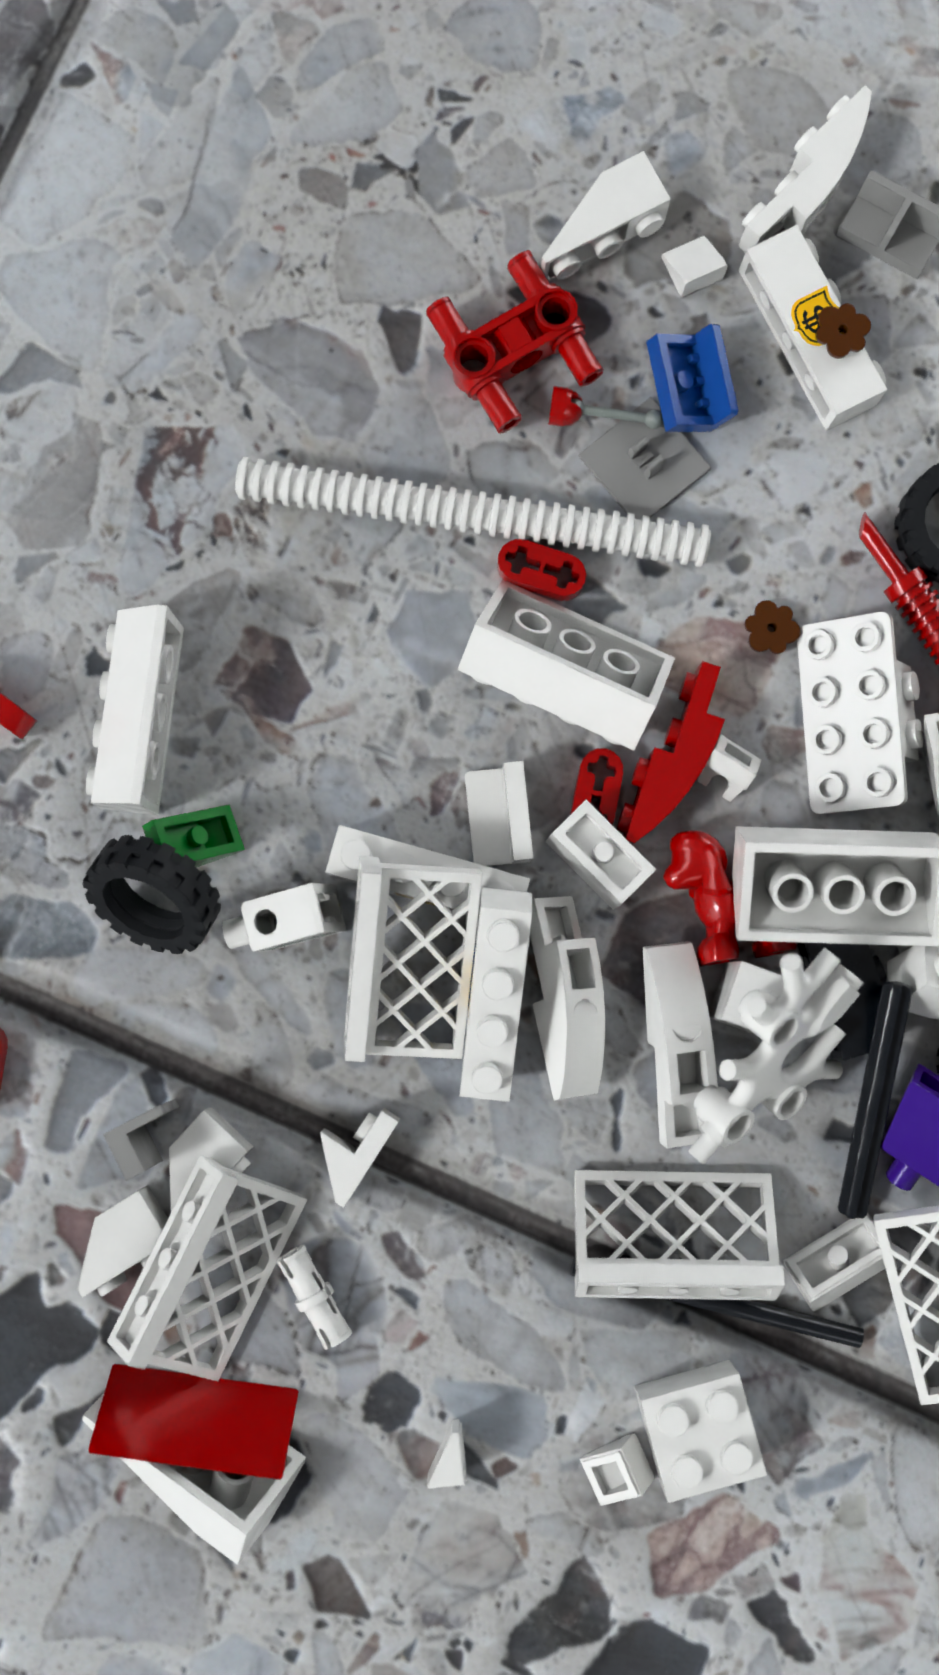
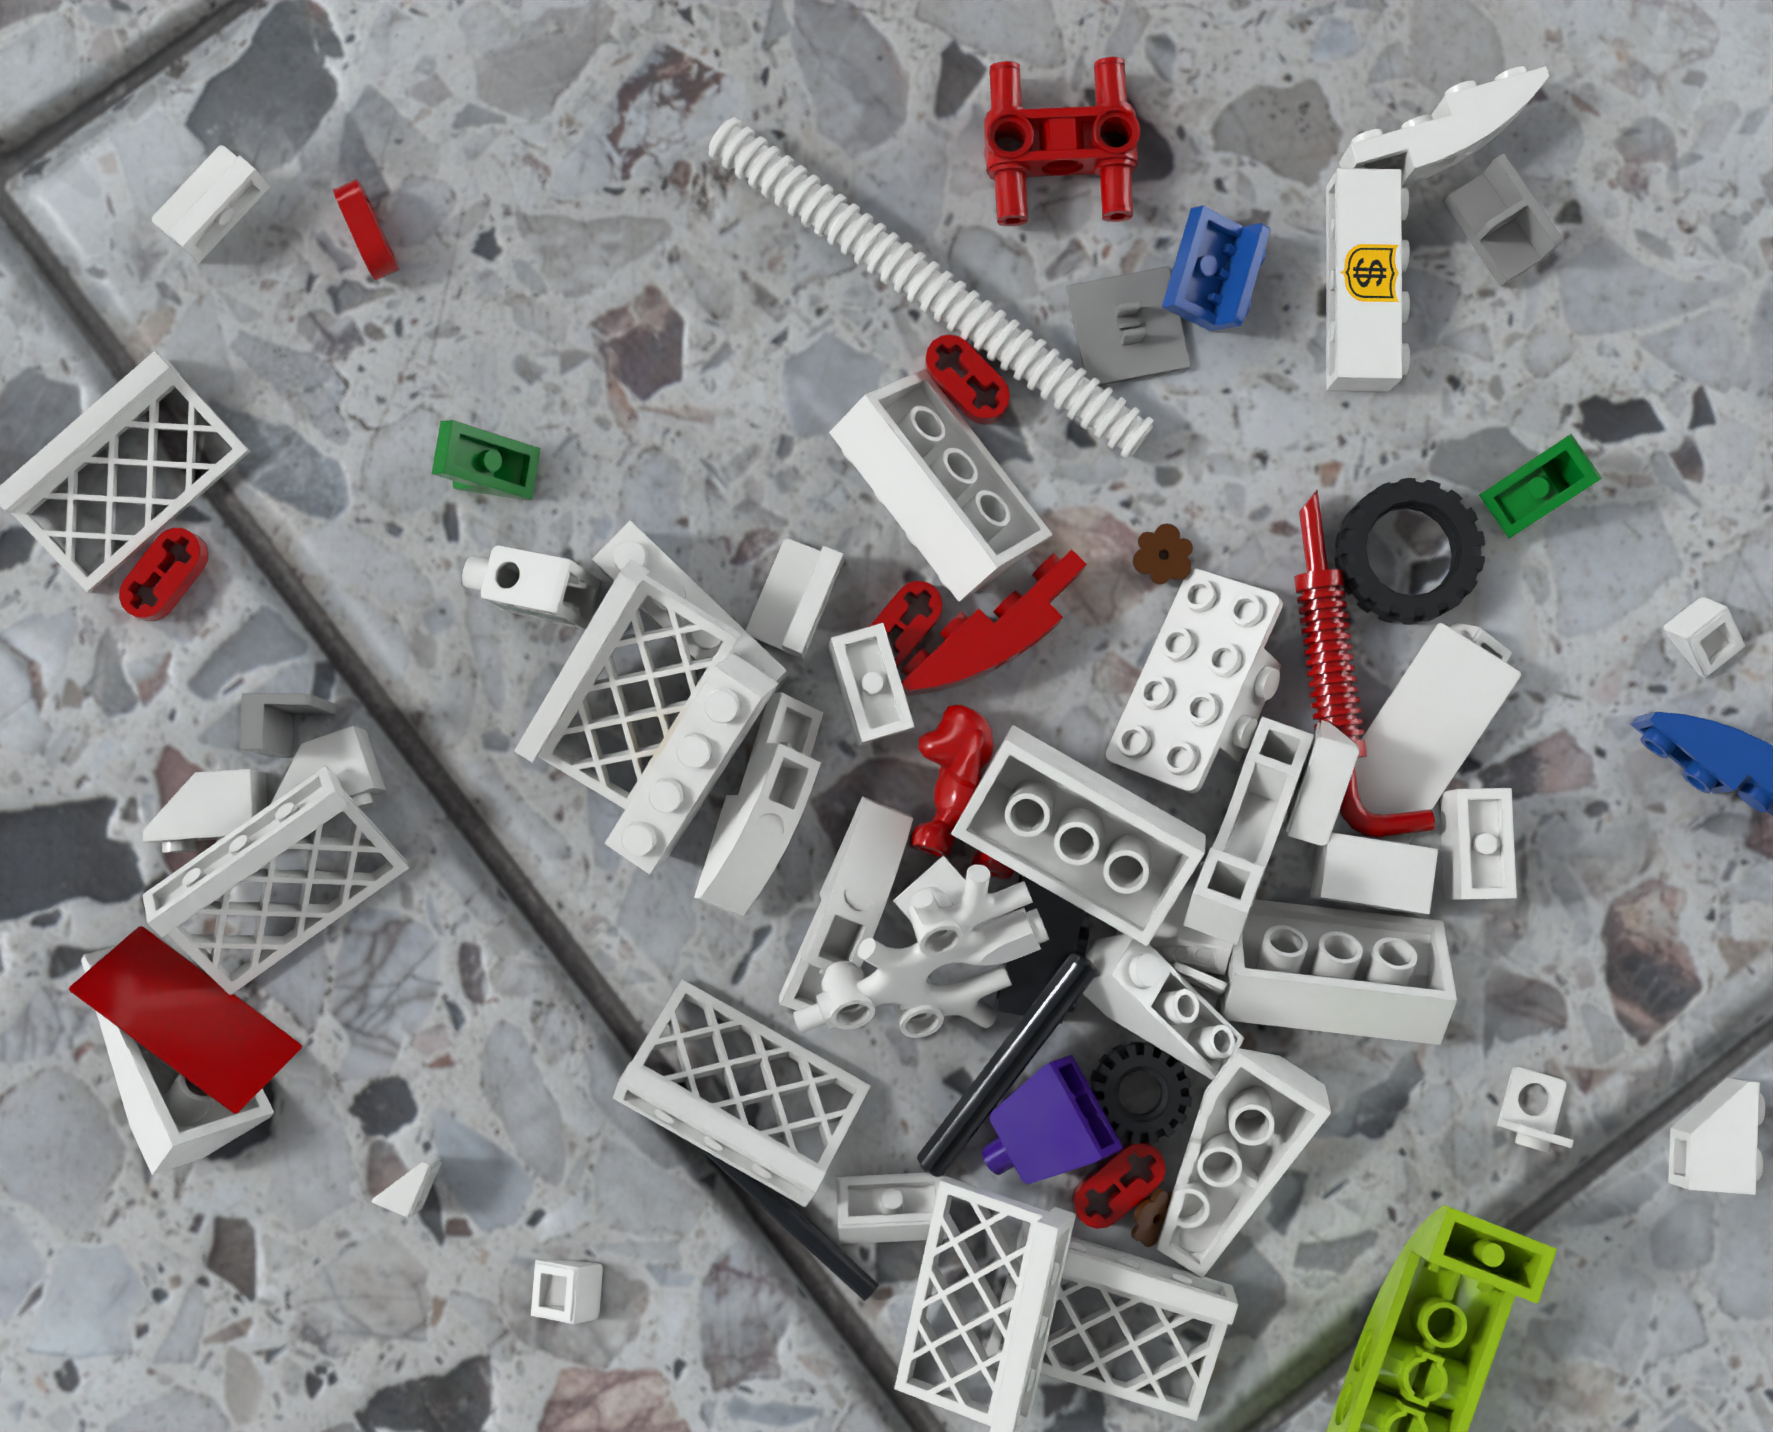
camera: 30 degrees right, 0 degrees up
(136, 710) = (498, 309): white slope -> none
(164, 871) = (437, 477): black tyre -> none
(314, 1297) = (364, 964): white pin -> none
(348, 1164) = (465, 855): white slope -> none
(568, 408) = (1079, 233): hinge -> none
(617, 207) = (1232, 62): white slope -> none
(694, 265) = (1282, 159): white slope -> none
(700, 1430) = (662, 1292): white brick -> none
(732, 763) = (1049, 665): white tile -> none
(844, 319) = (1401, 297): reddish brown plant -> none

